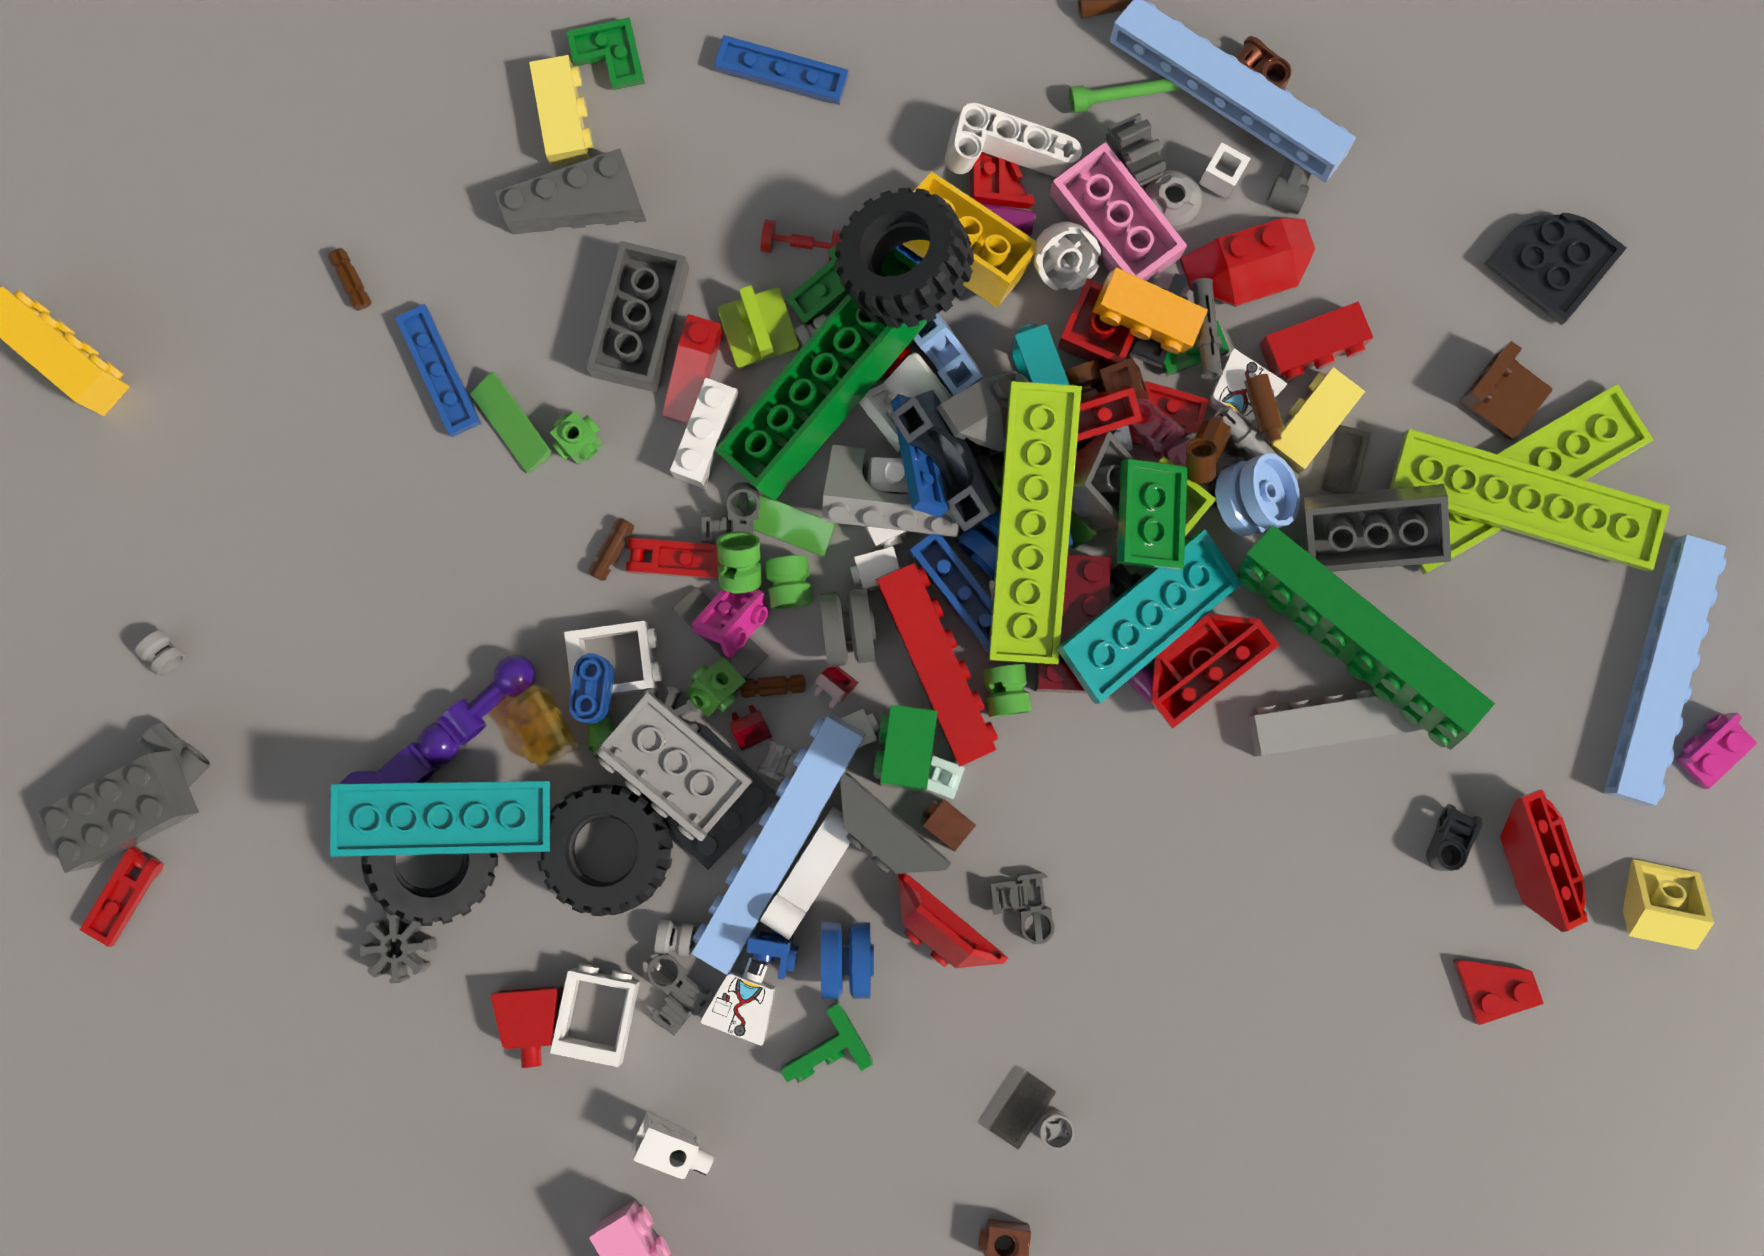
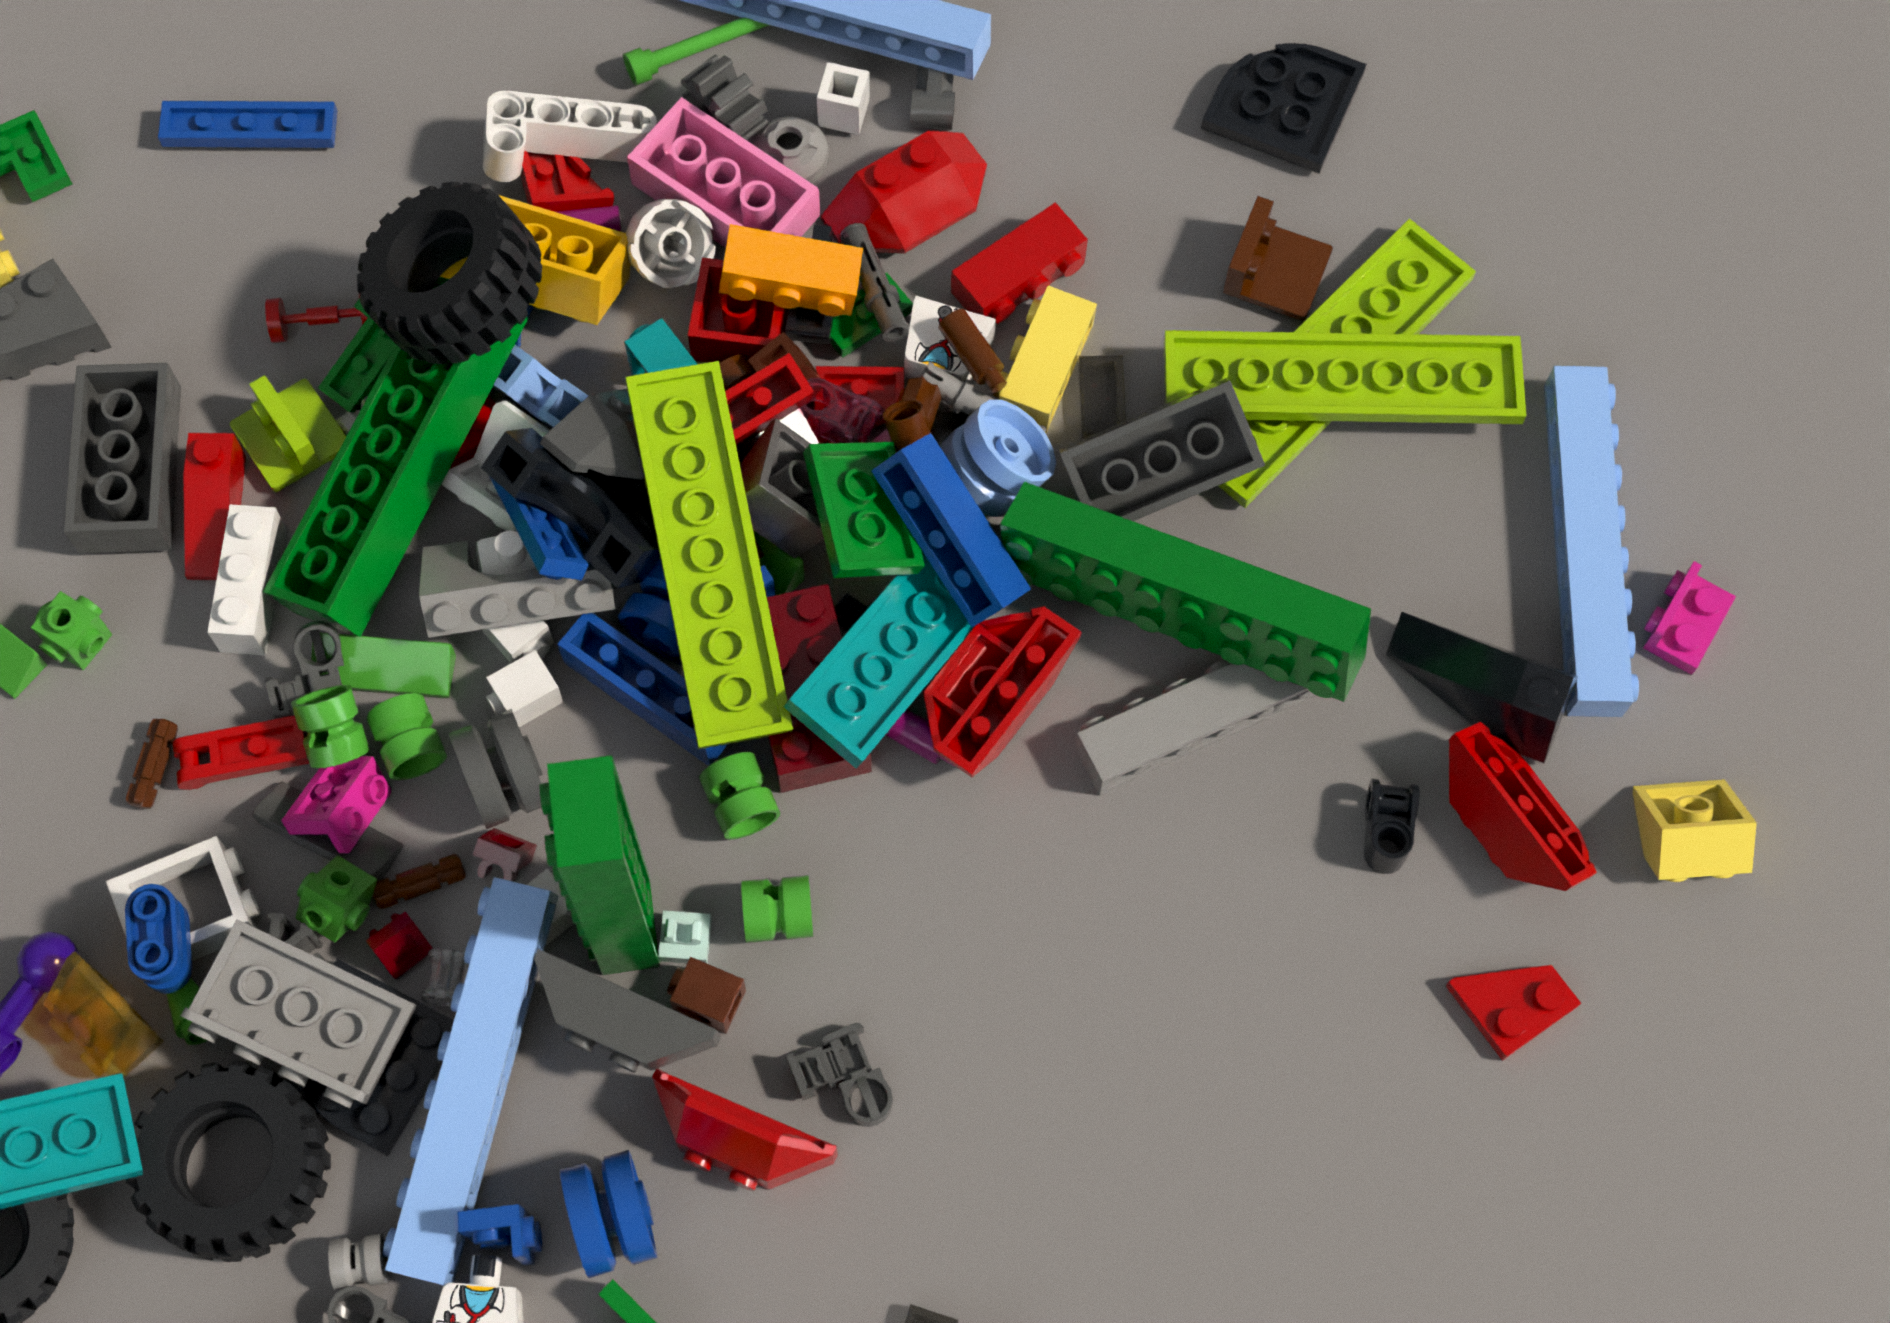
camera: 20 degrees left, 15 degrees down
(808, 876) = (519, 1152): white beam -> none
(936, 664) = (664, 822): red brick -> none
(1011, 779) = (777, 908): none -> bright green wheel
(1210, 546) = (951, 529): none -> blue brick
(1555, 759) = (1485, 683): none -> black wedge

